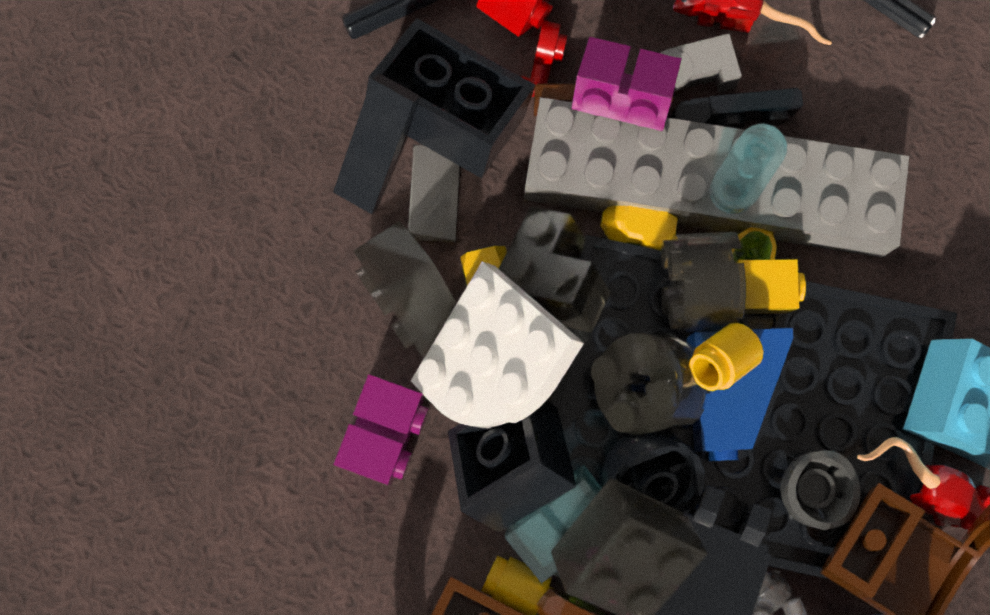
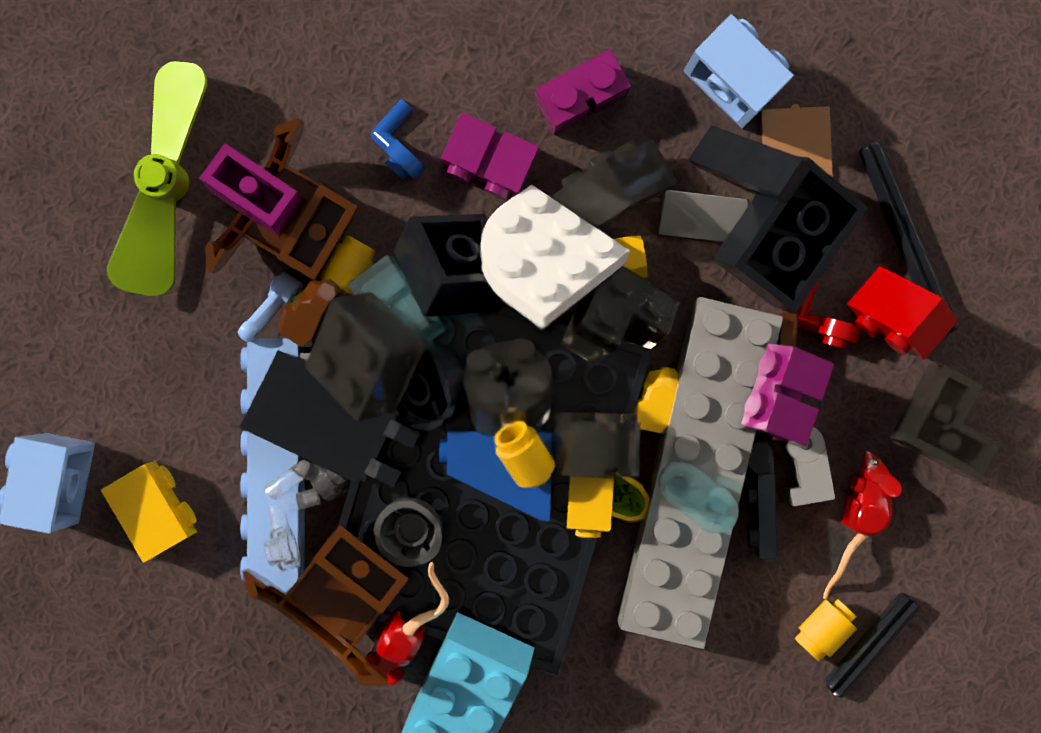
camera: 90 degrees right, 10 degrees up
(275, 161) = (738, 70): none -> light blue brick
(309, 345) = (566, 96): none -> magenta piece
(336, 101) = (800, 133): none -> medium nougat piece
(389, 533) = (400, 159): none -> blue plate
(866, 36) = (826, 629): none -> yellow brick

